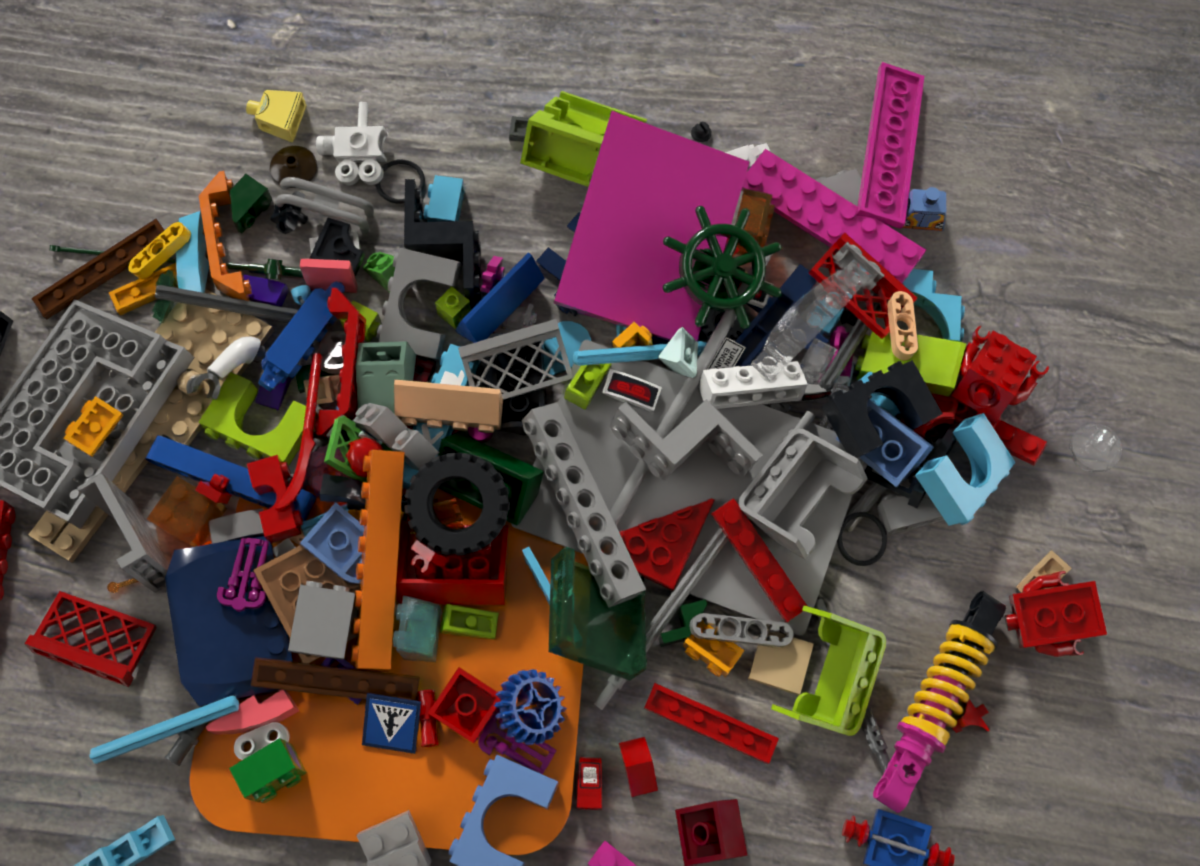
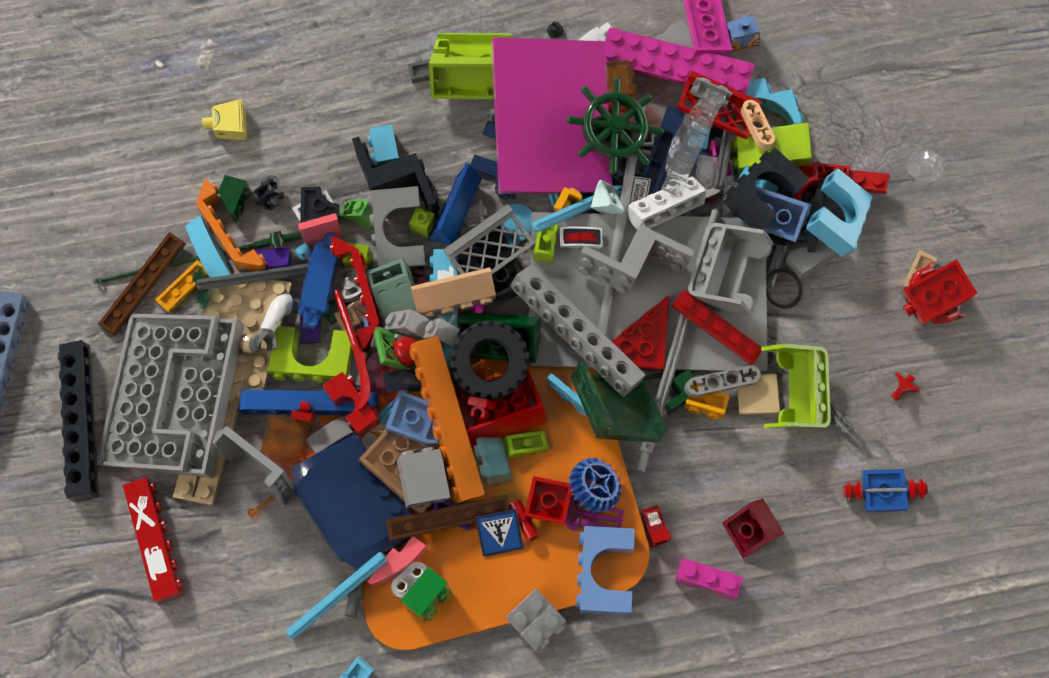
camera: 15 degrees left, 0 degrees up
(77, 656) = (250, 570): red fence -> none
(92, 426) = (194, 398): light orange bracket -> none
(148, 260) = (175, 257): yellow beam -> none
(257, 599) = (357, 485): magenta piece -> none
(303, 168) = (255, 165): dark brown dish -> none
(325, 202) = (295, 176): light grey piece -> none
(355, 146) = (300, 125): white piece -> none
(395, 162) = (332, 129): black tyre -> none
(493, 274) = (443, 187): dark pink plate -> none
(638, 766) = (685, 502): red slope -> none
(711, 723) = (724, 454): red plate -> none
(939, 699) = (878, 379): piece -> none
(996, 374) = (836, 138): red torso -> none

